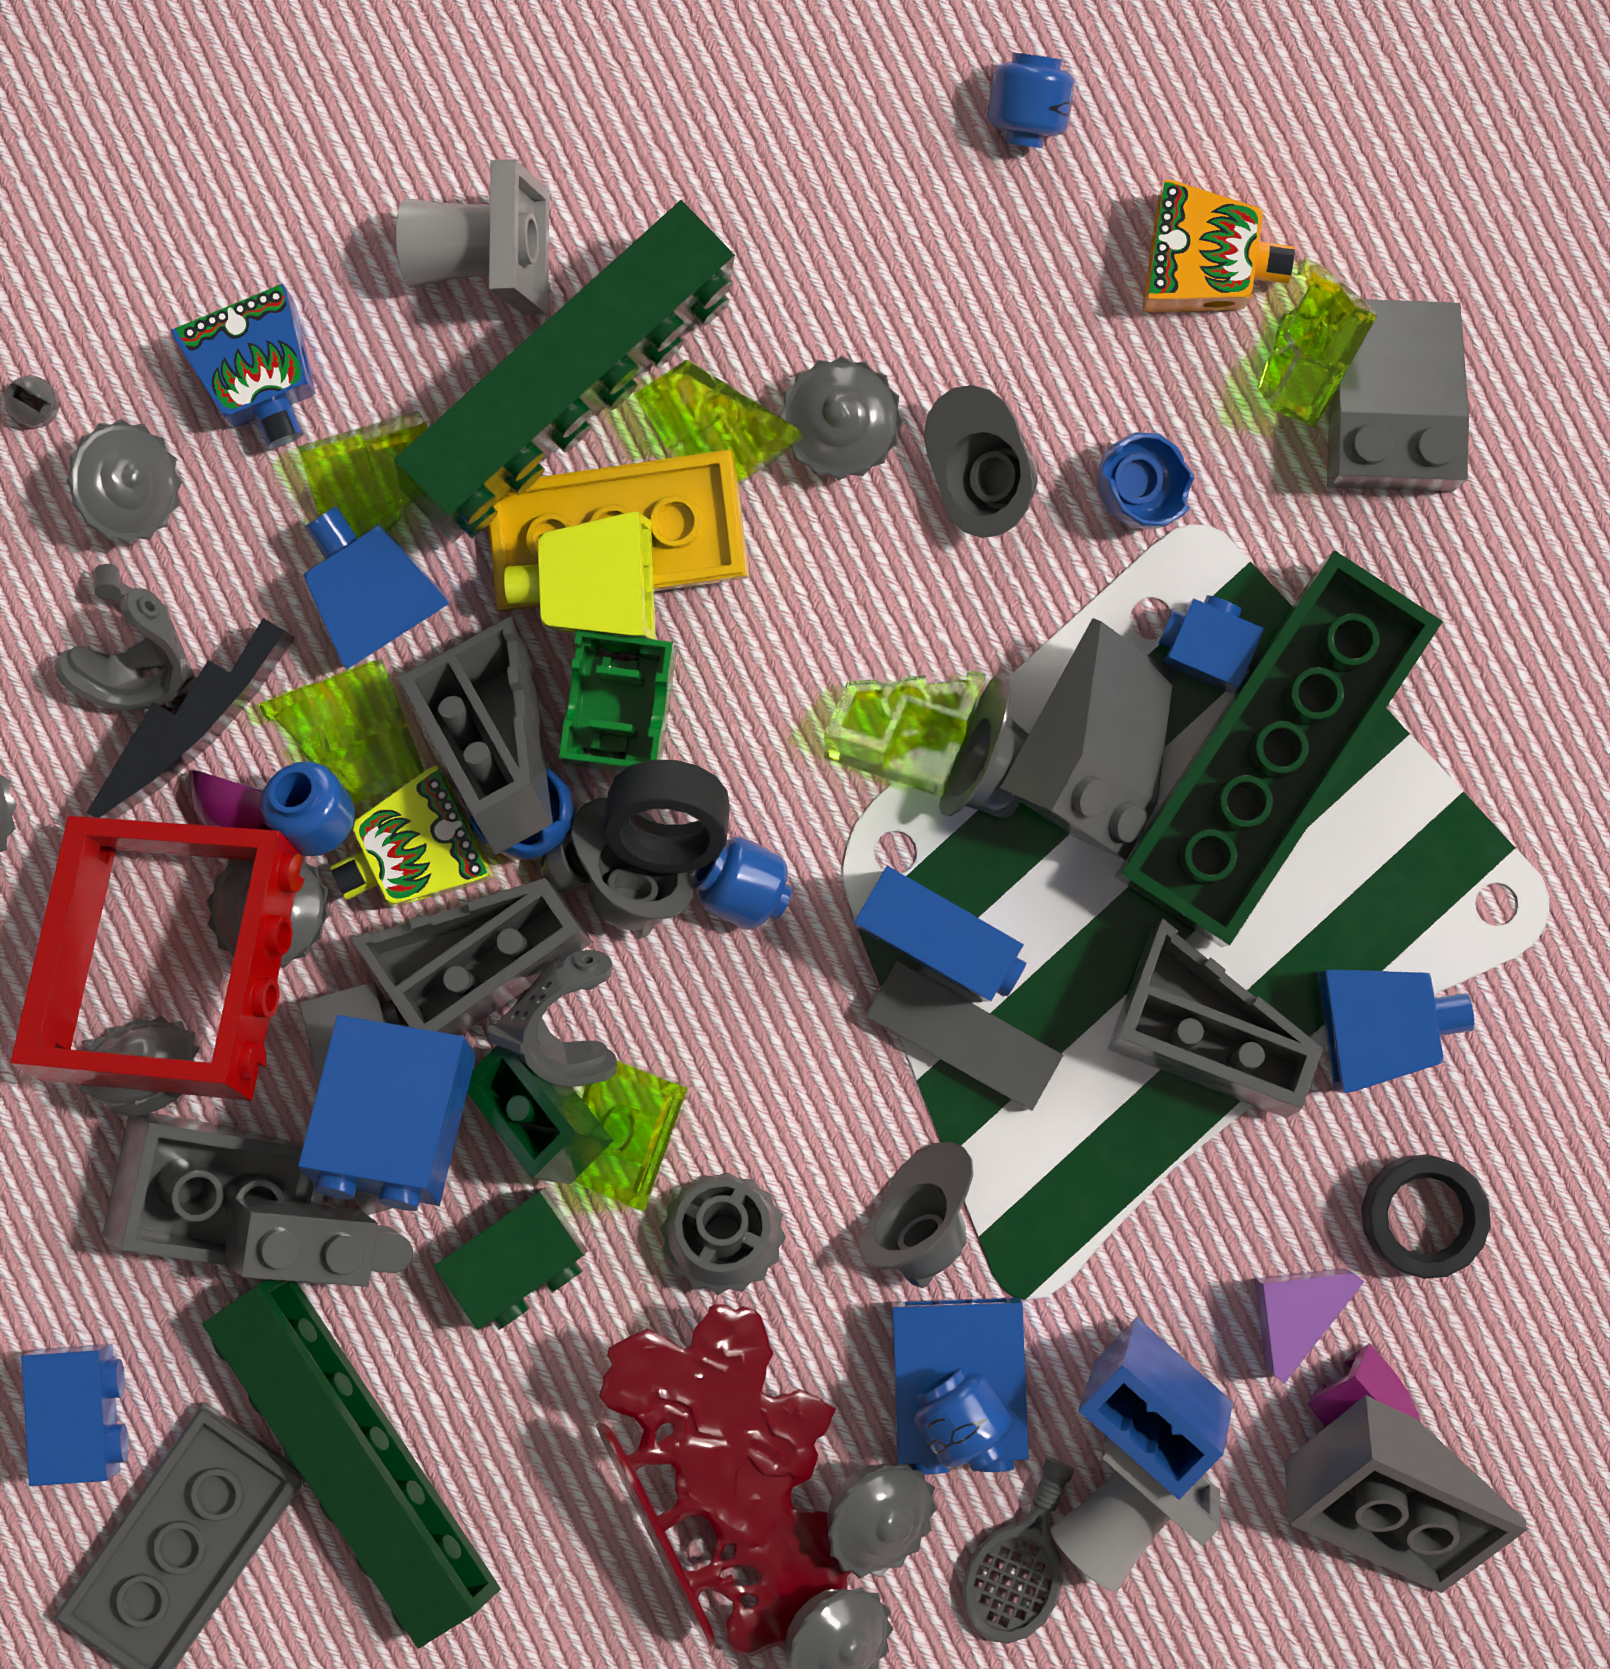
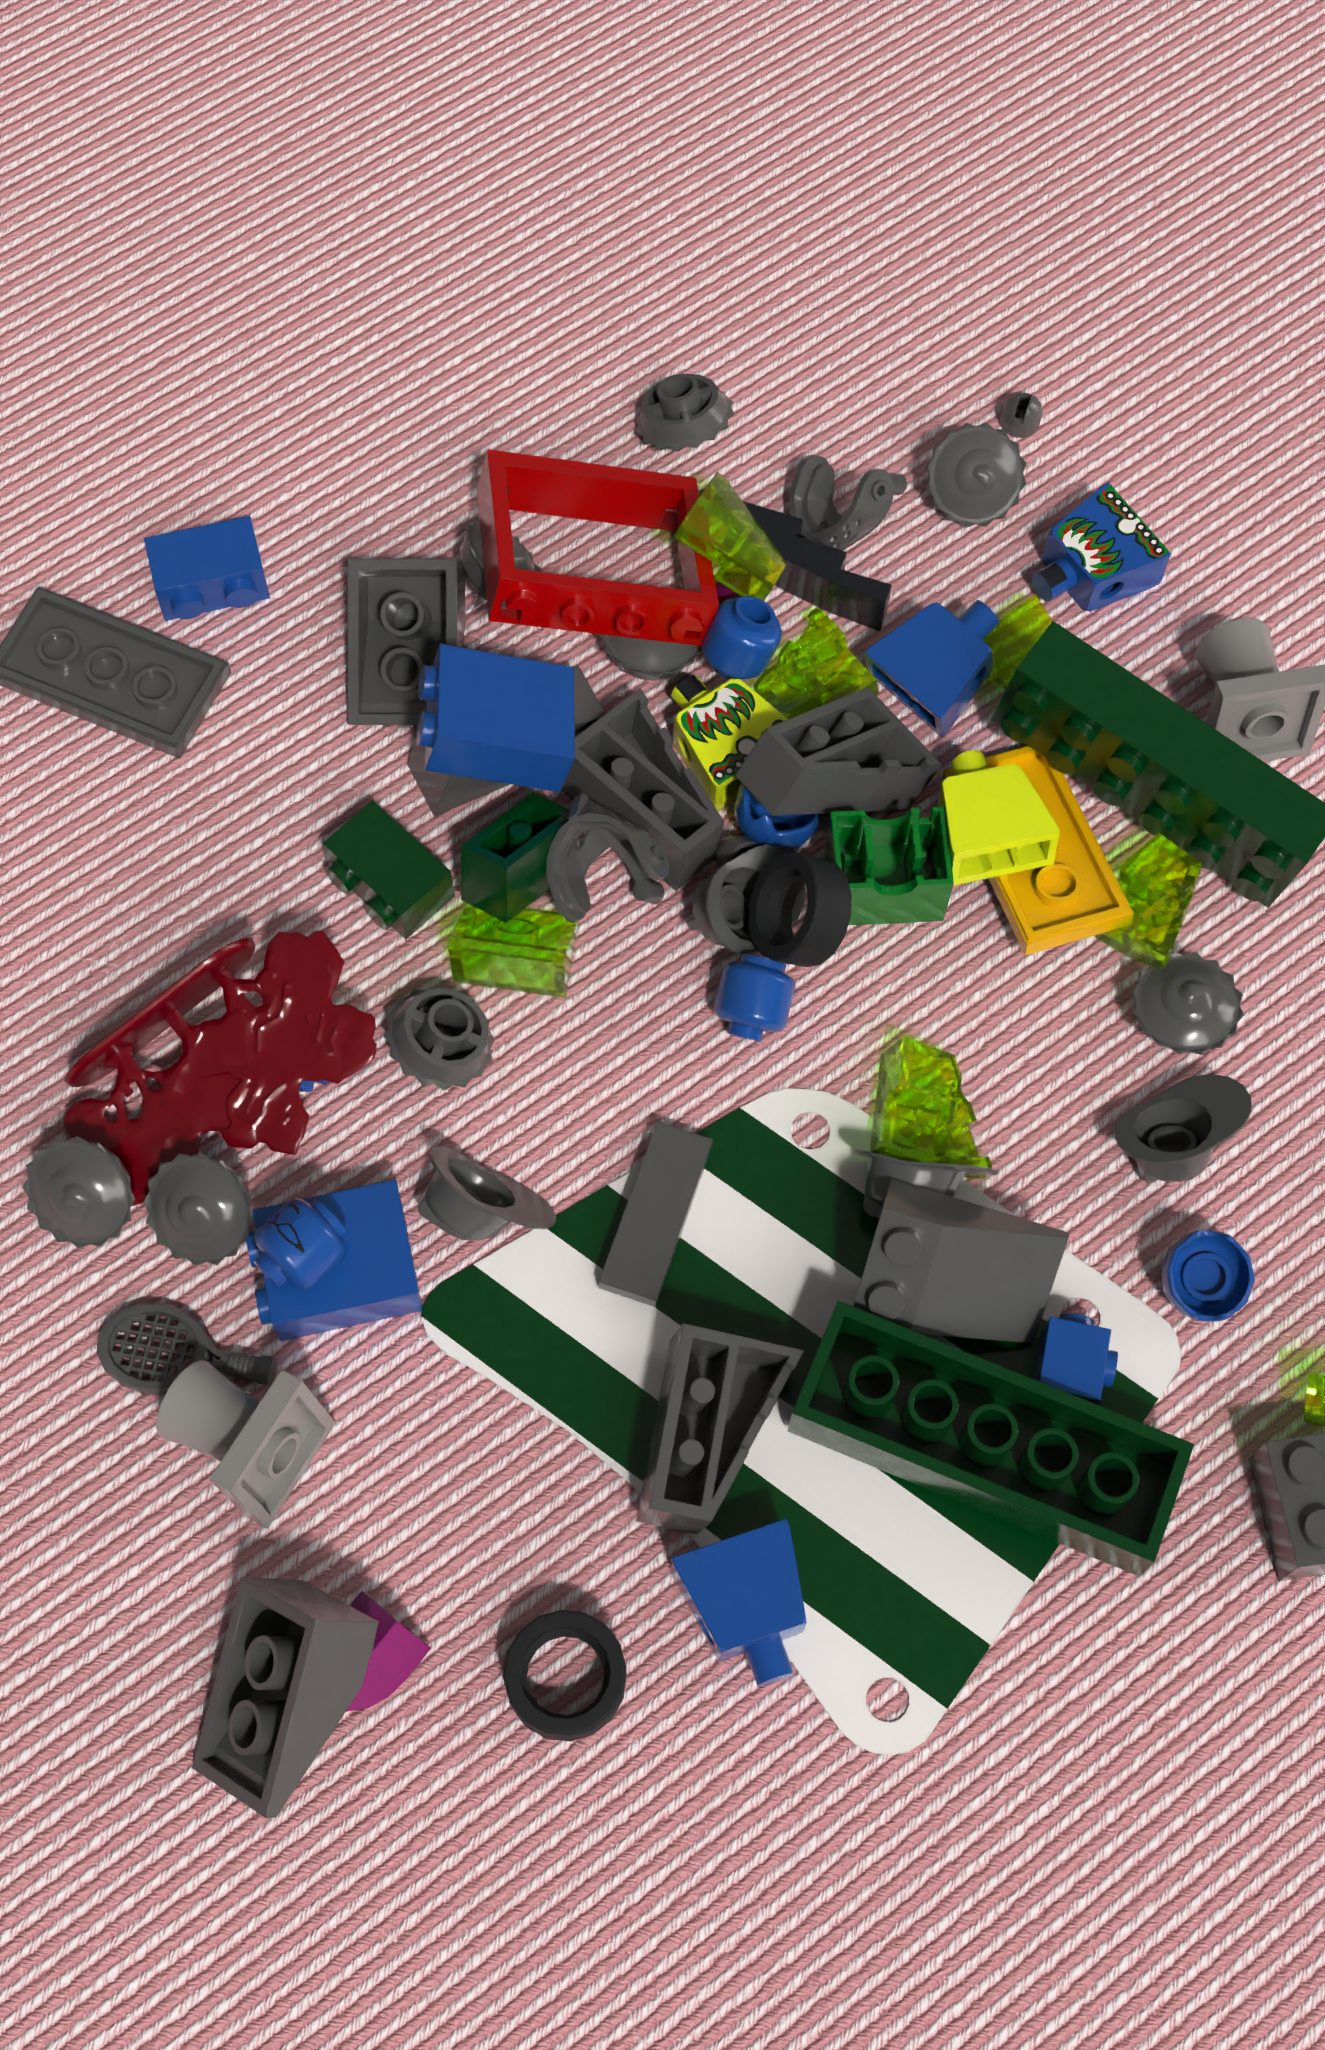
camera: 75 degrees right, 20 degrees down
(178, 793) = (732, 538): none -> clear neon green slope
(311, 1243) = (376, 708): dark grey brick -> none
(352, 1459) = (197, 774): dark green brick -> none
(941, 936) = (743, 1156): blue brick -> none
(1157, 1408) = (337, 1425): blue brick -> none
(1298, 1312) = (447, 1562): medium lavender slope -> none

